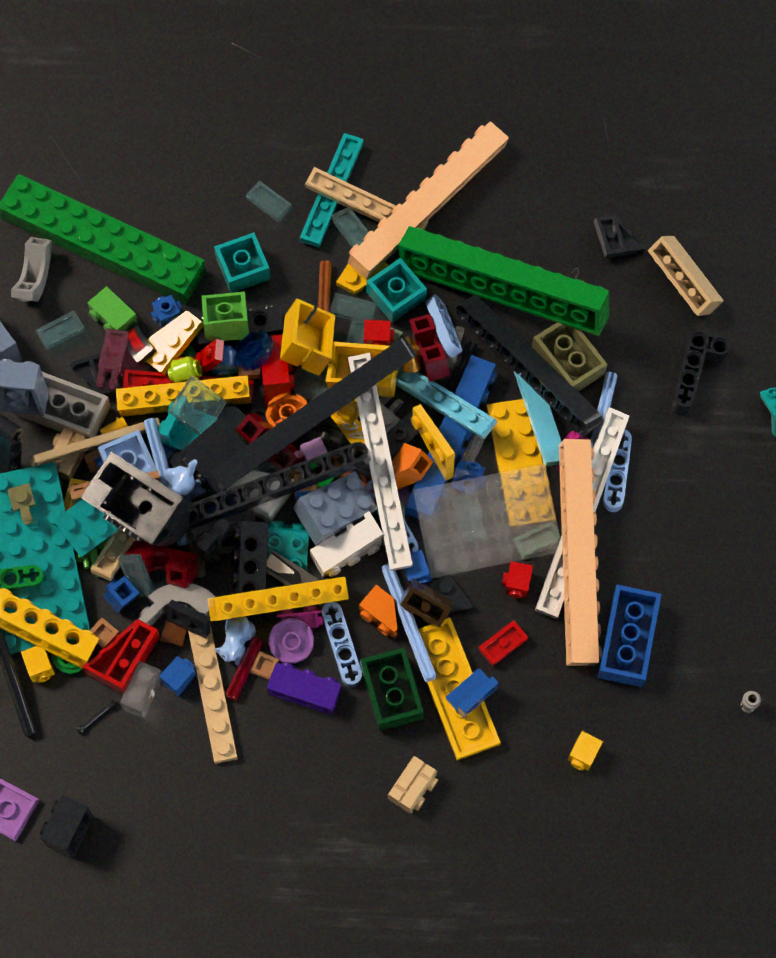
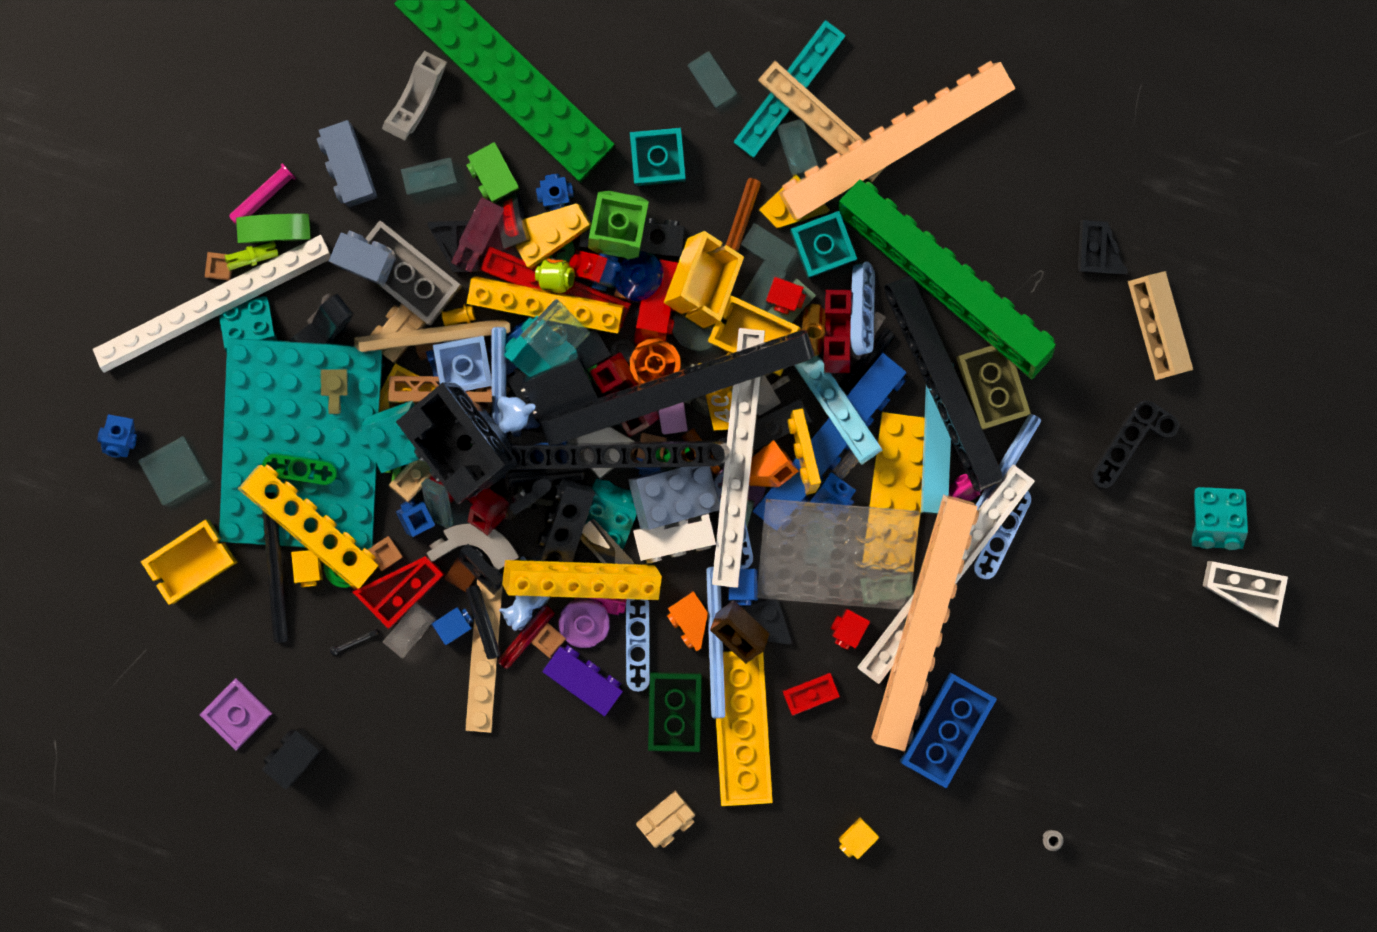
camera: 20 degrees right, 20 degrees up
(203, 662) = (483, 622): none -> black axle
(472, 692) = (758, 741): blue panel -> none

